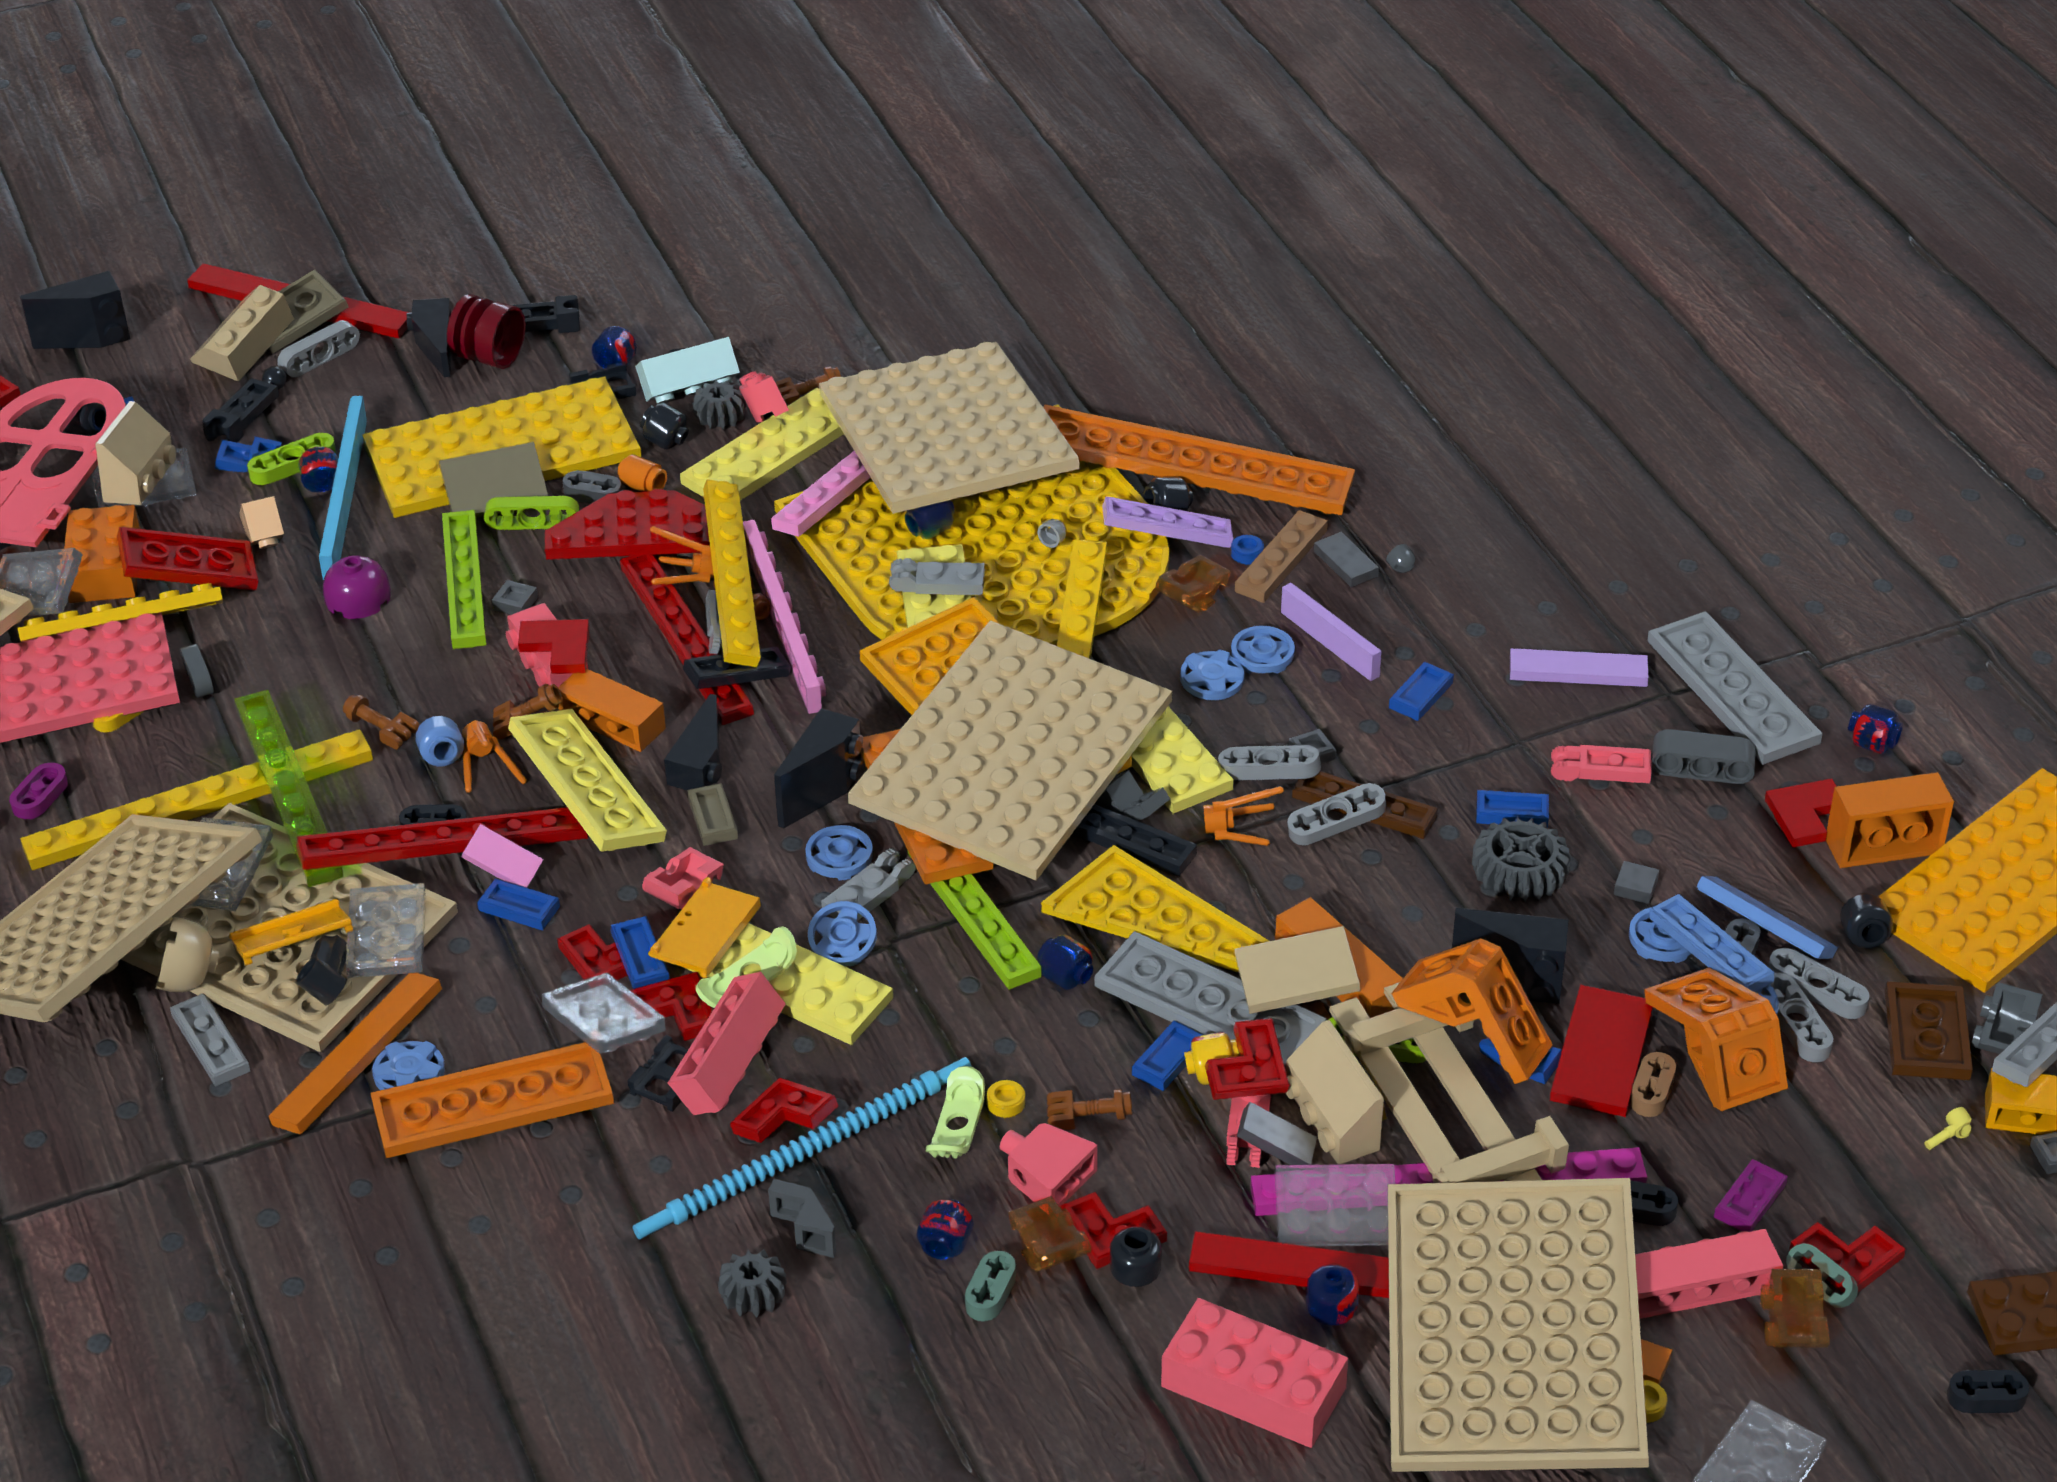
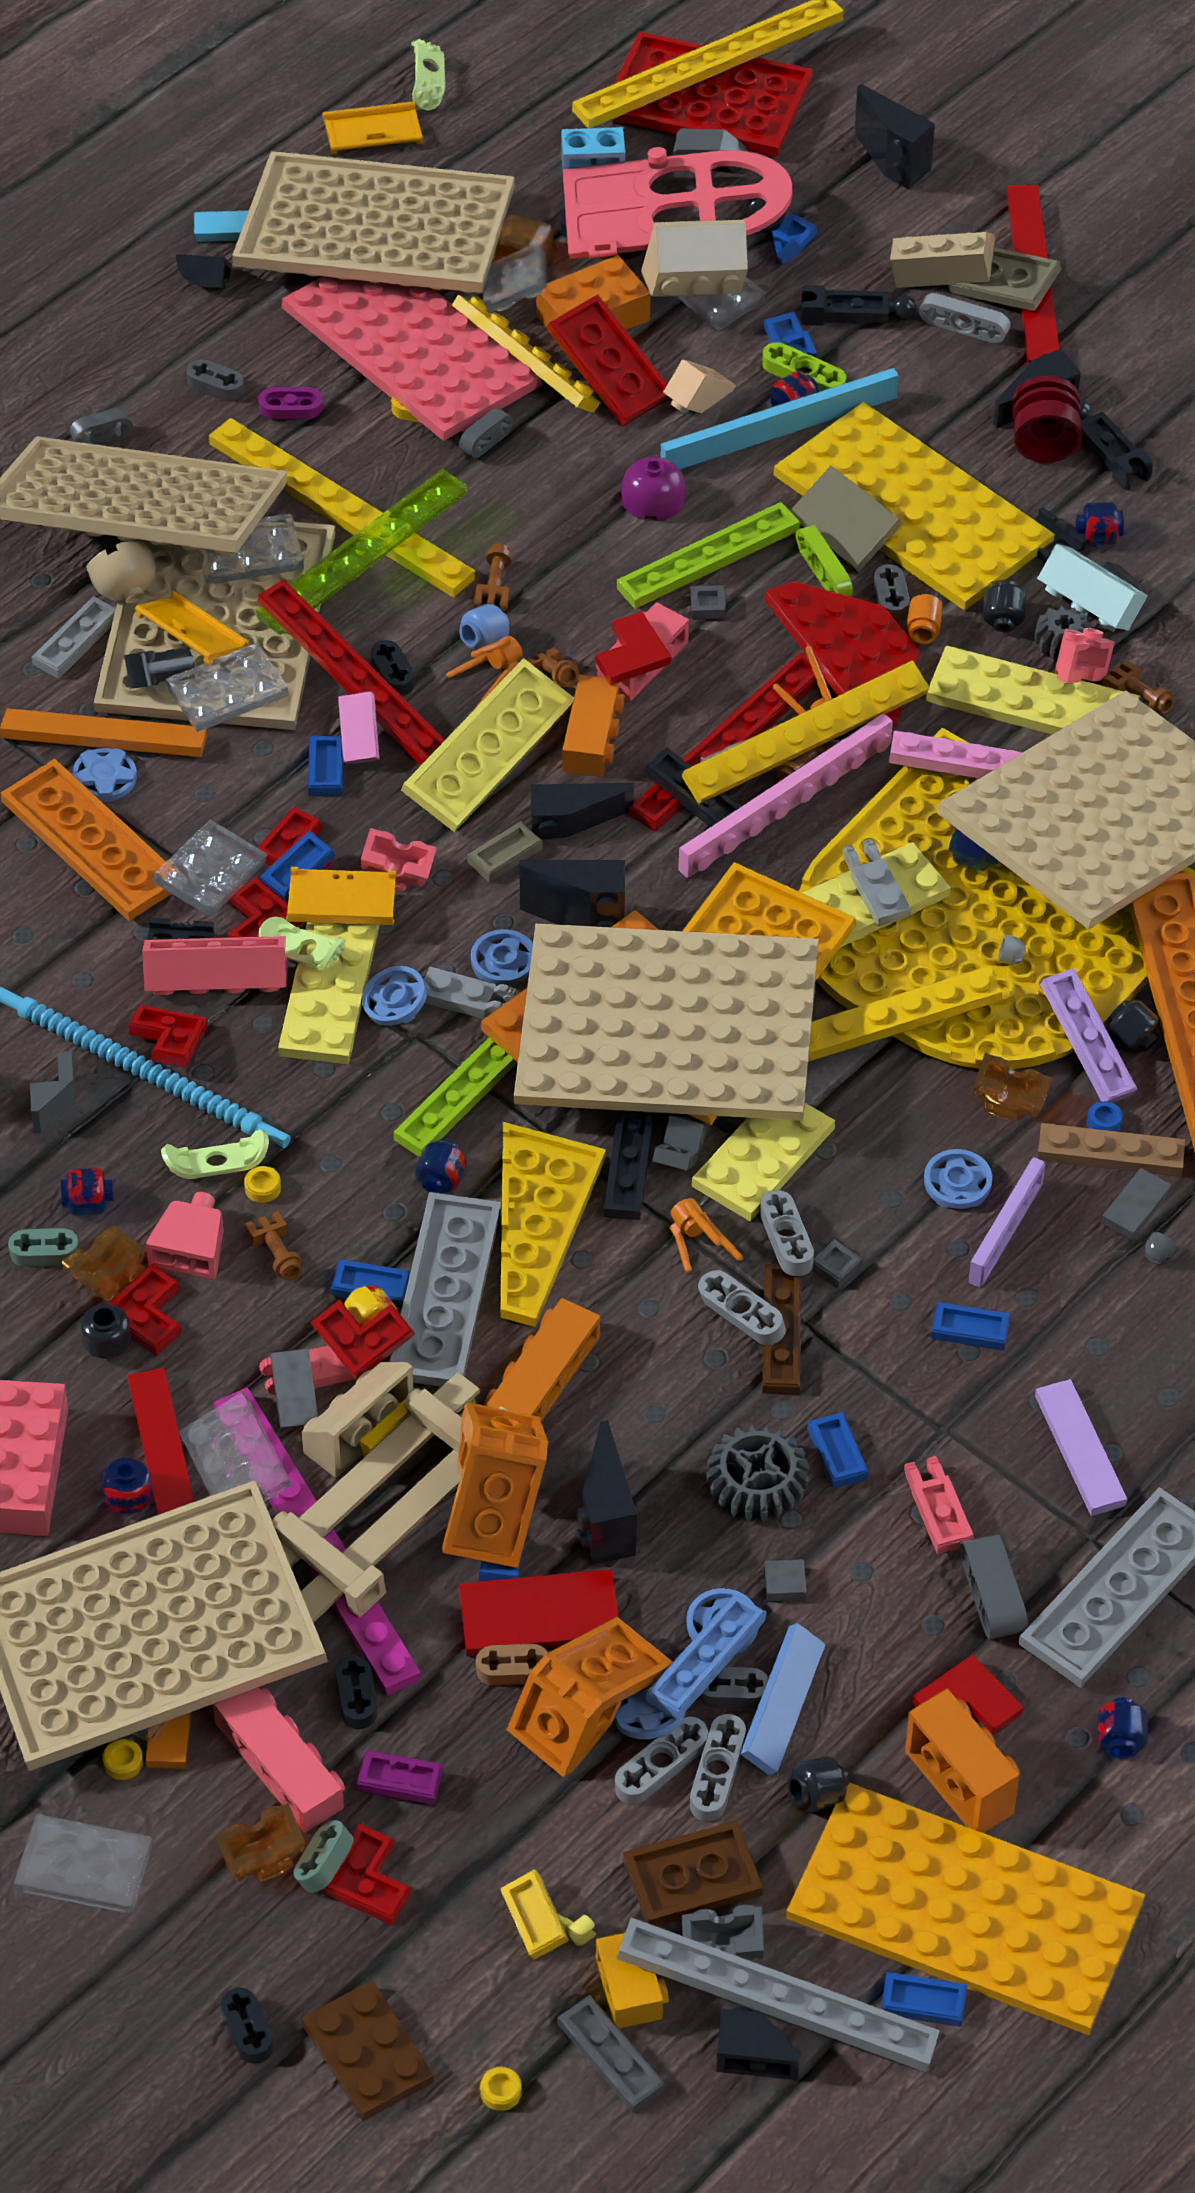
camera: 65 degrees right, 10 degrees up
(1212, 671) = (898, 1150): medium blue wheel -> none
(1297, 969) = (496, 1334): tan tile -> none
(1934, 1148) = (534, 1914): none -> yellow tile

